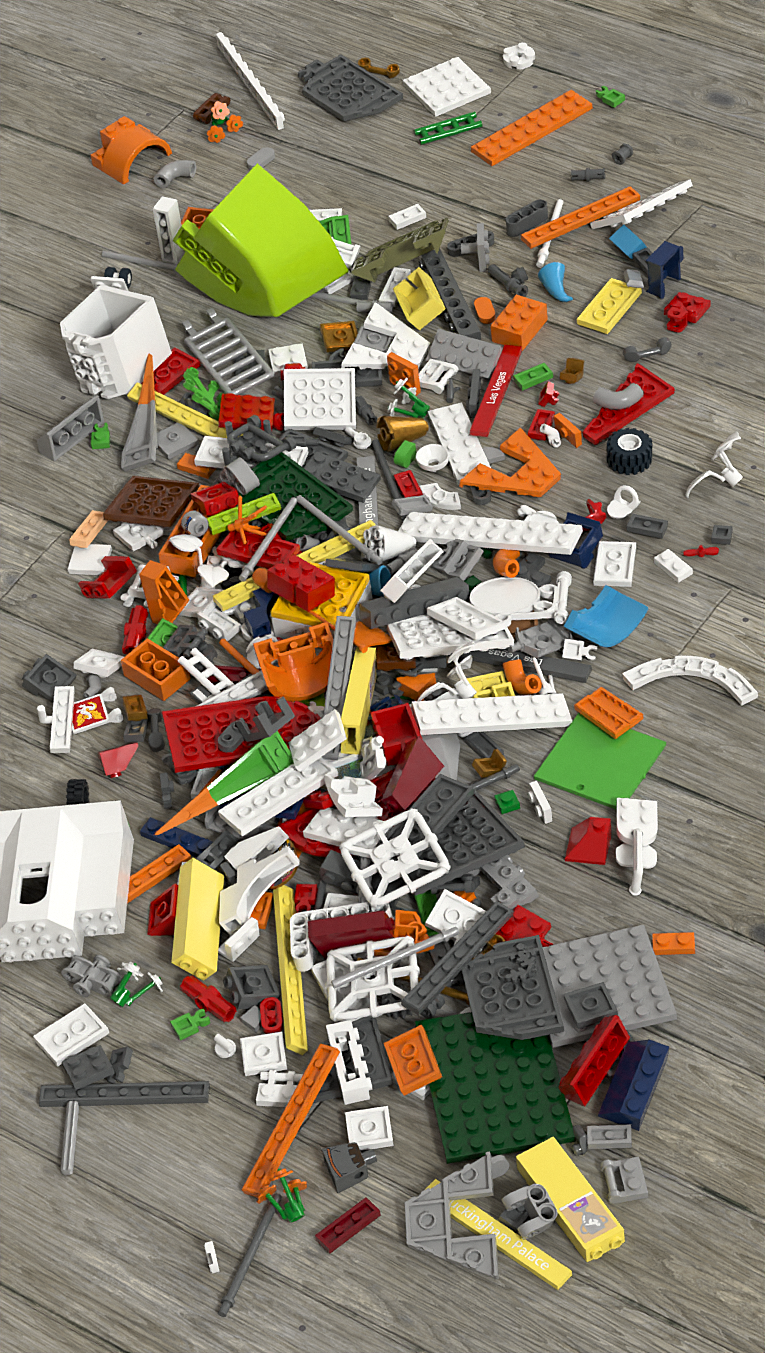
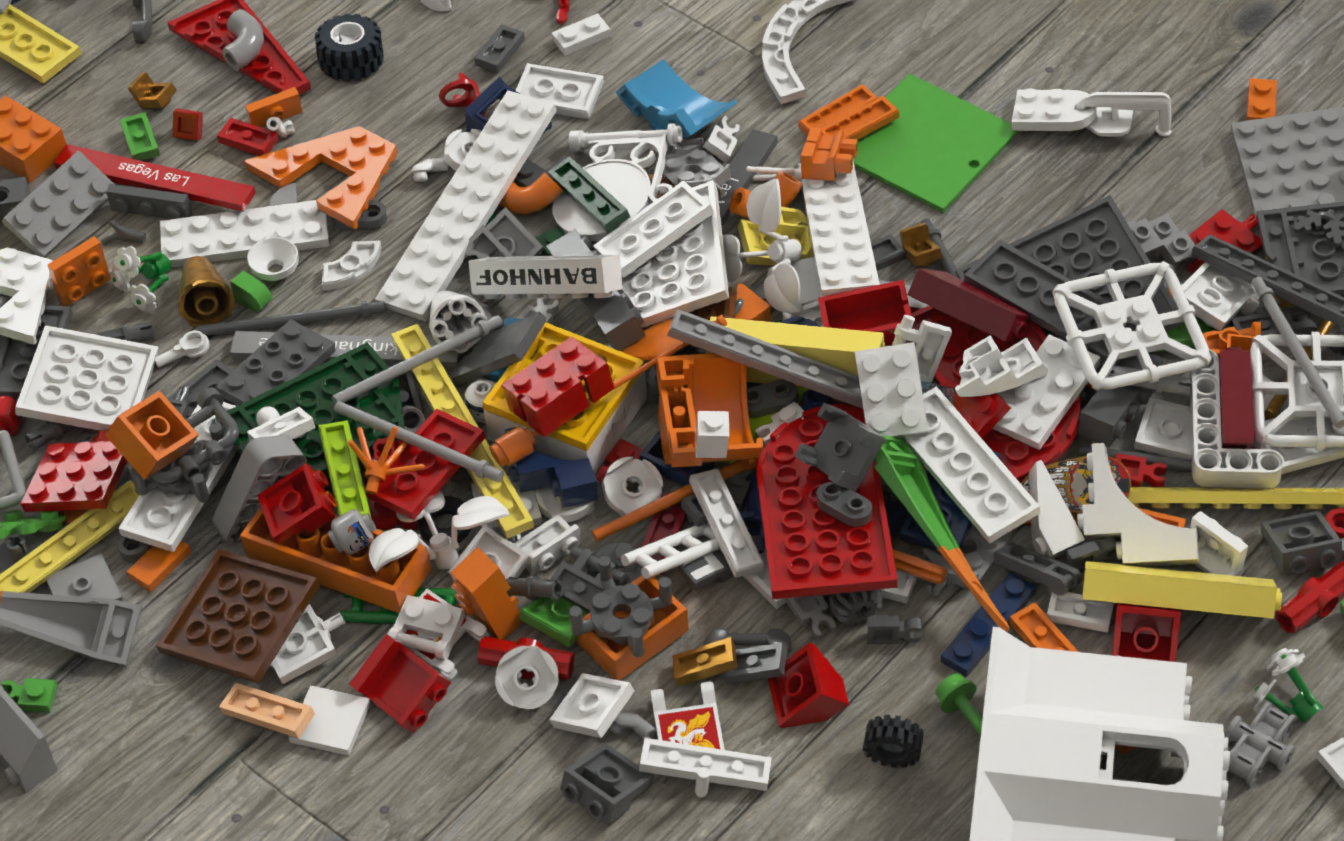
camera: 85 degrees left, 5 degrees up
(114, 629) = (509, 672): none -> white plate
(146, 647) = (616, 599): none -> dark grey plate
(177, 619) = (535, 587): none -> dark grey pin
(244, 417) = (151, 434): none -> orange brick
(261, 653) = (712, 434): none -> white brick
(270, 478) = (290, 424): none -> white plate
(338, 439) = (179, 370): dark grey plate -> none
(405, 506) = (365, 292): light grey tile -> none
(407, 484) = (319, 295): red plate -> none
(431, 373) = (71, 238): white plate -> none
(500, 585) = (589, 194): none -> plate
(507, 802) = (983, 239): green plate -> none
(541, 804) = (1000, 201): white plate -> none
(551, 701) = (827, 155): none -> orange hips
(589, 841) = (1078, 160): red slope -> none
(621, 508) = (451, 69): white piece -> none

